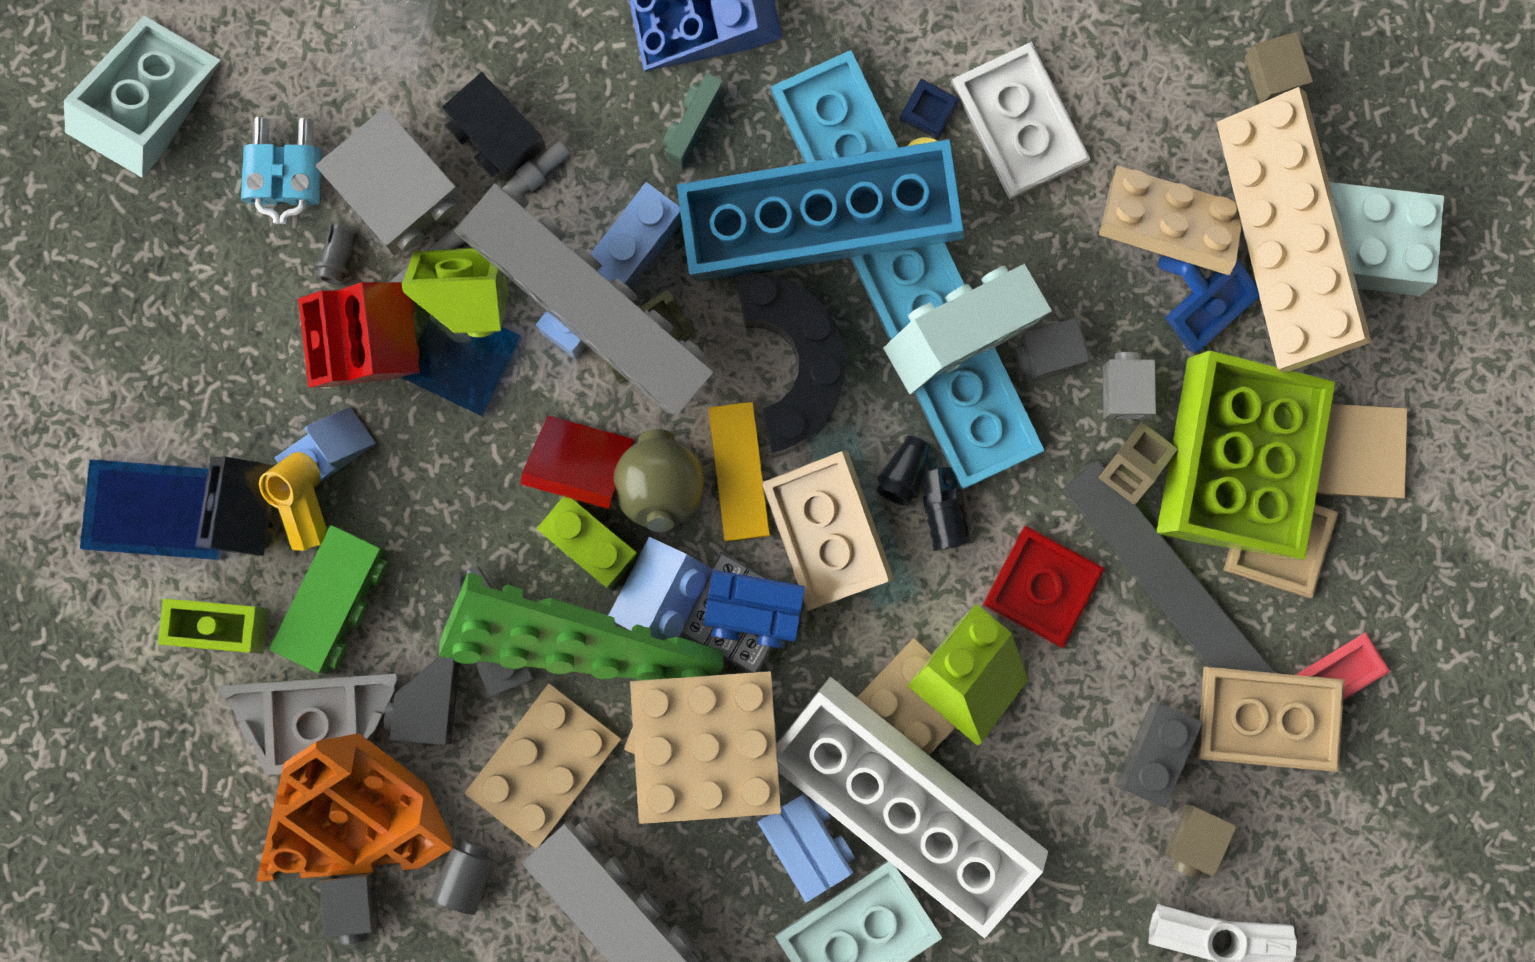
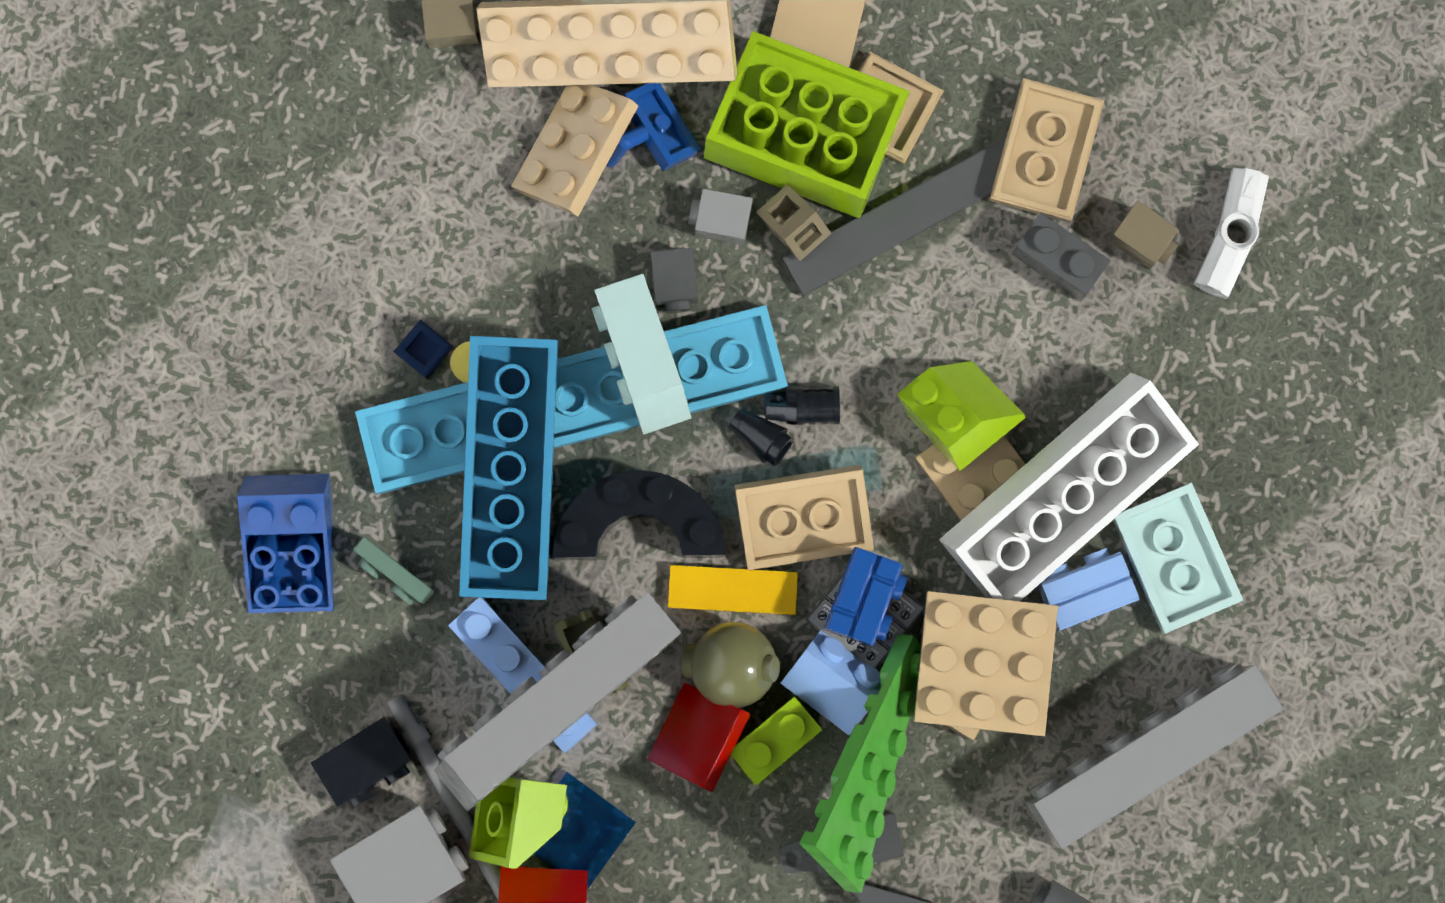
camera: 80 degrees left, 0 degrees up
(543, 766) = (972, 820): tan plate -> none
(1020, 120) = (450, 266): white tile -> none
(1043, 586) = (889, 330): red tile -> none
(1354, 662) = (1009, 65): coral tile -> none

